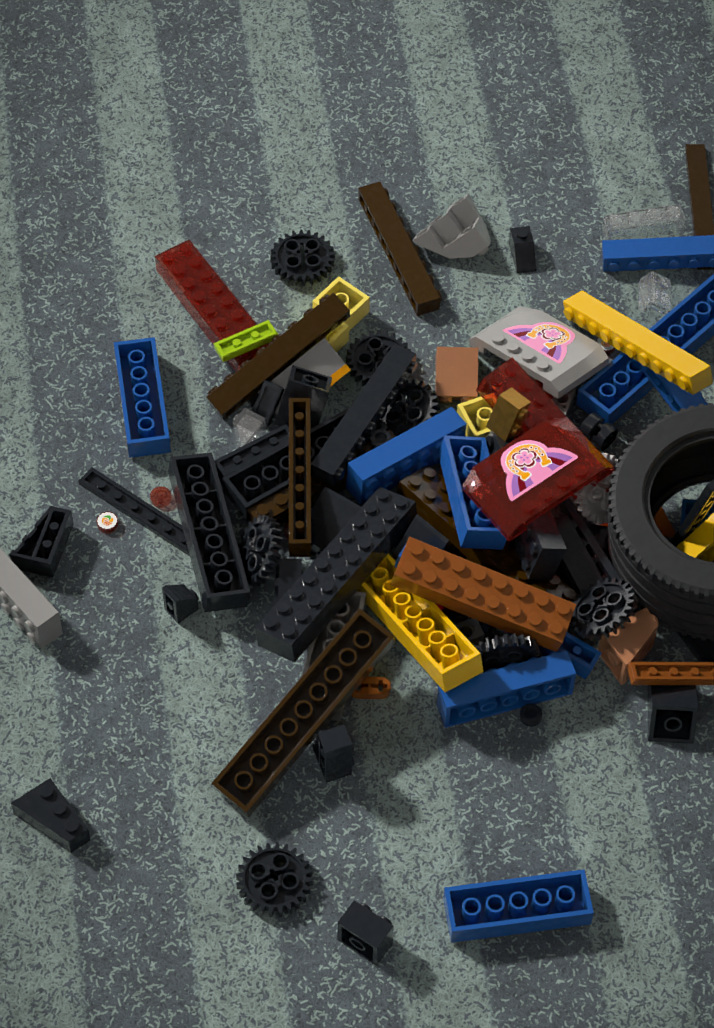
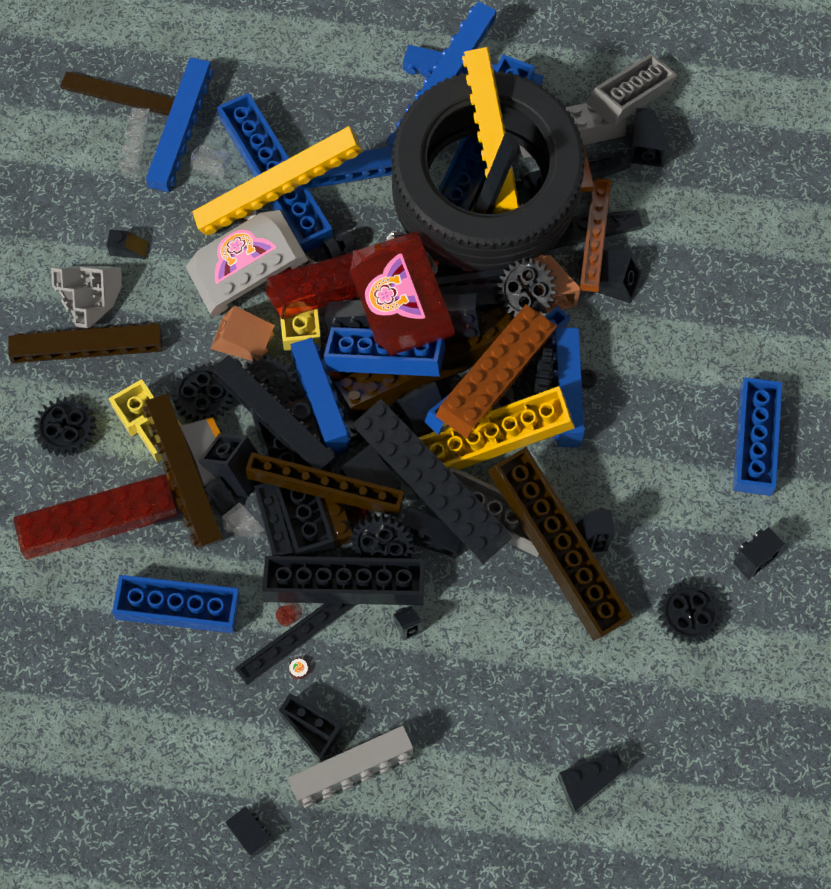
camera: 75 degrees left, 10 degrees up
(245, 341) = (156, 494): lime tile -> none
(508, 414) = (325, 297): pearl gold brick -> none

